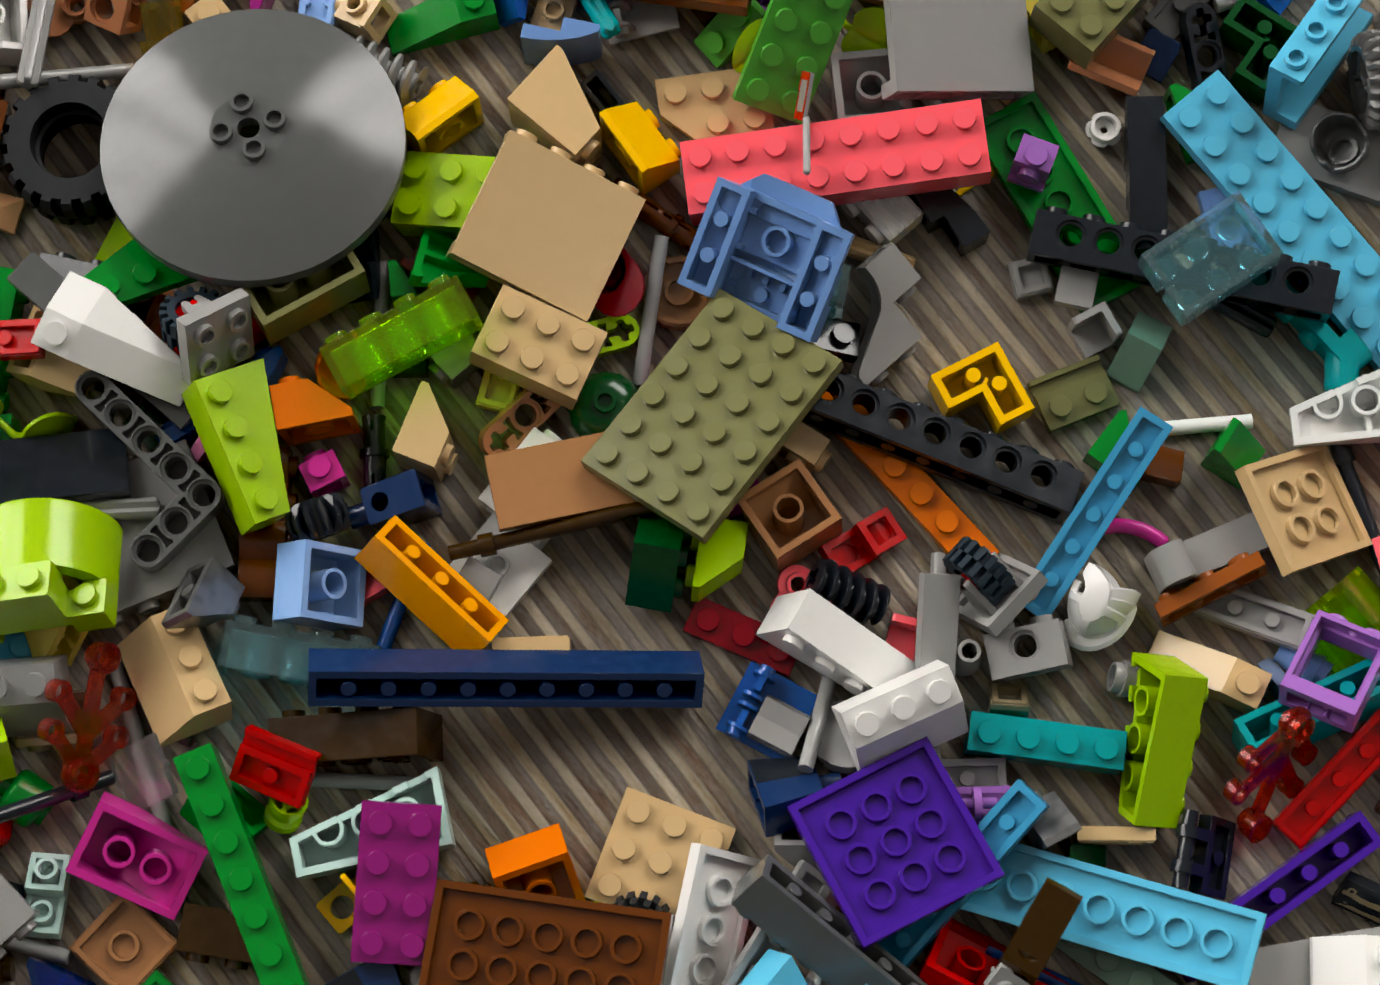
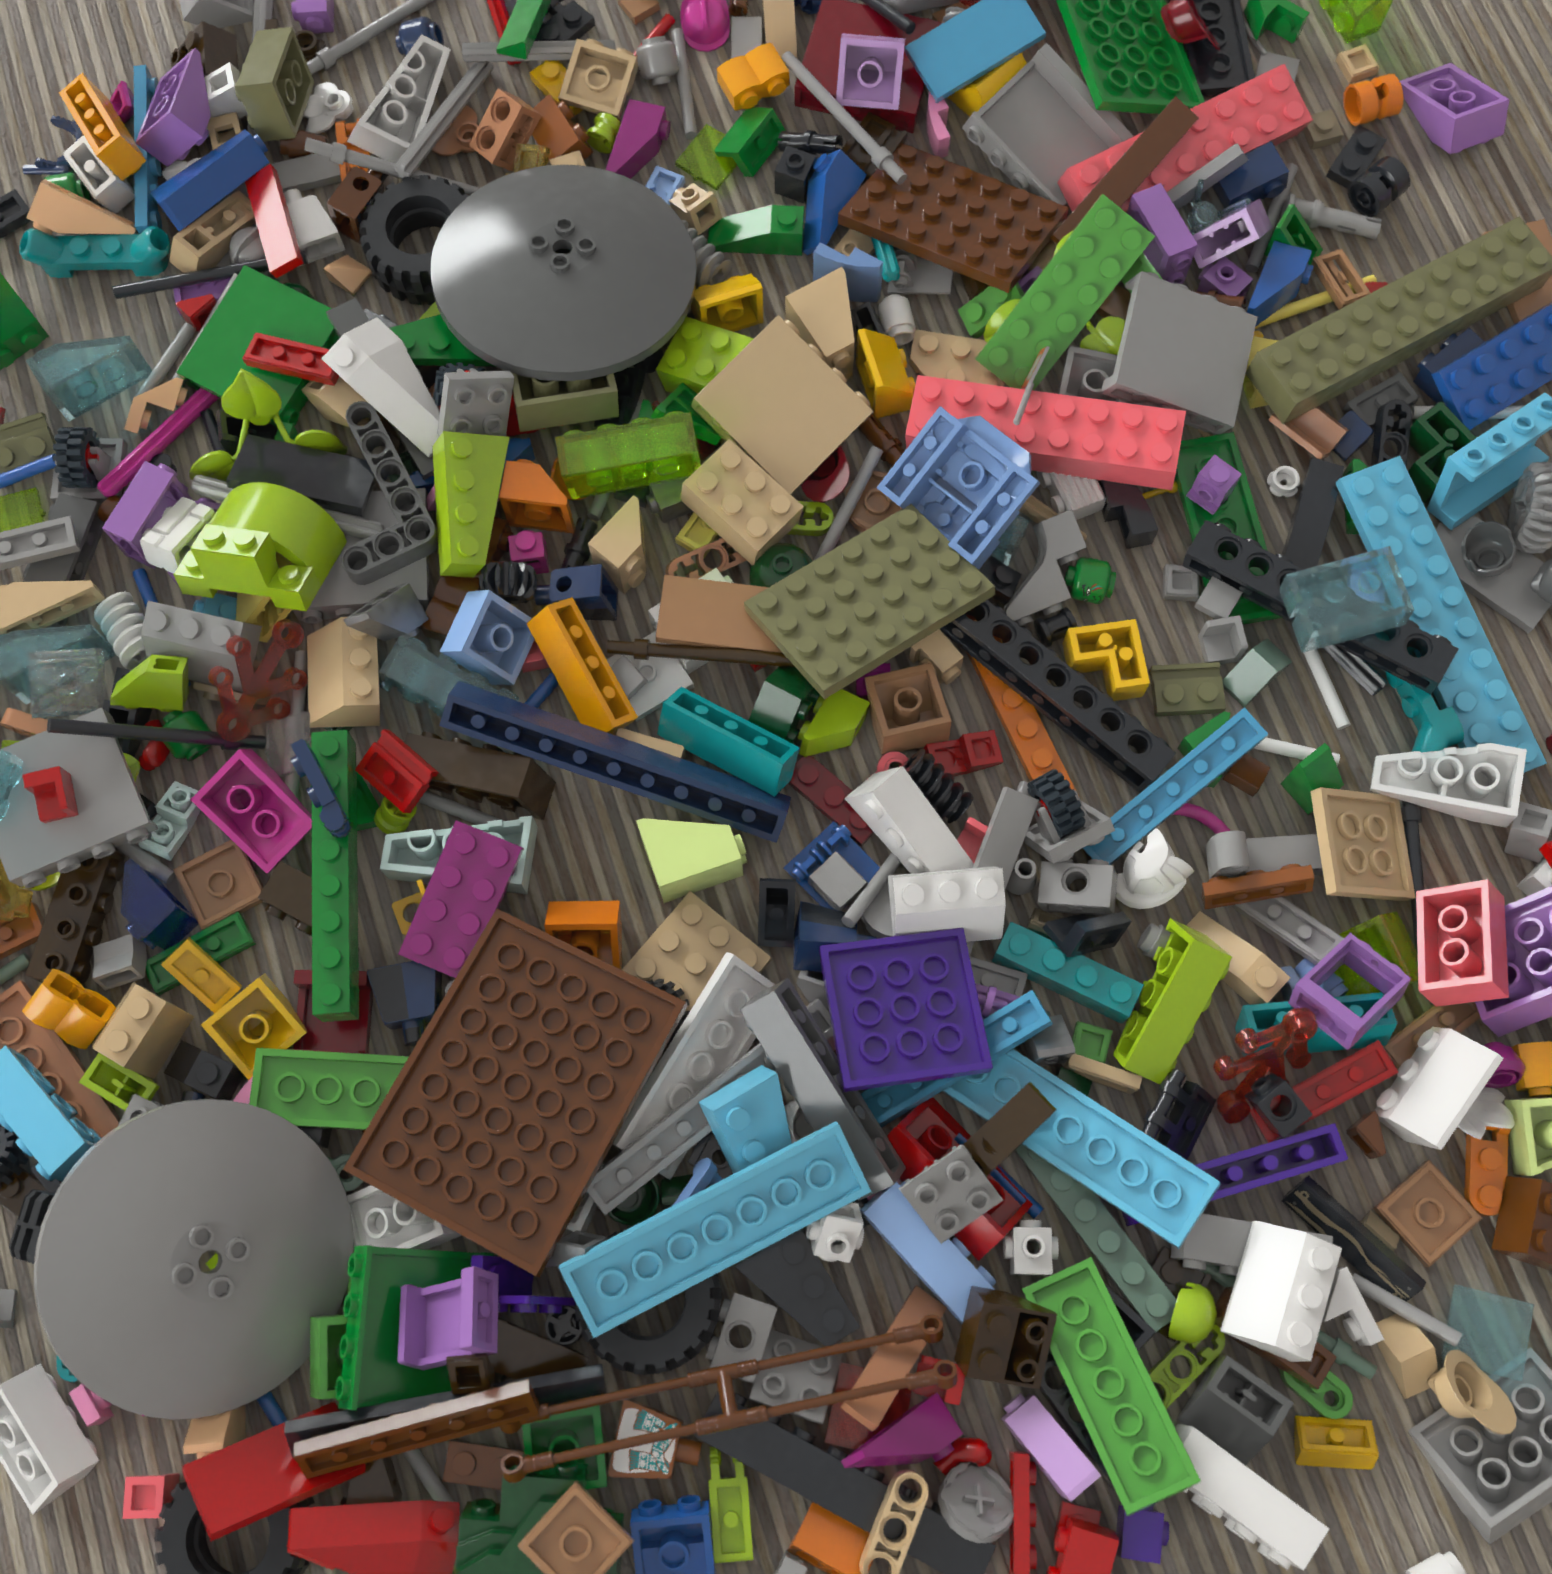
camera: 20 degrees right, 5 degrees down
(212, 821) = (321, 792): none -> dark blue hinge
(613, 614) = (728, 741): none -> teal brick
(616, 751) = (691, 855): none -> yellowish green slope
(631, 75) = (897, 318): none -> white brick
(726, 781) = (776, 912): none -> black slope
(914, 372) = (1054, 627): none -> black bush
(935, 308) = (1090, 580): none -> green head
(1051, 695) = (1087, 932): none -> black panel
(1091, 806) = (1091, 1041): none -> bright green tile
(1221, 350) = (1327, 689): none -> white bar
(1311, 818) = (1288, 1114): none -> black brick

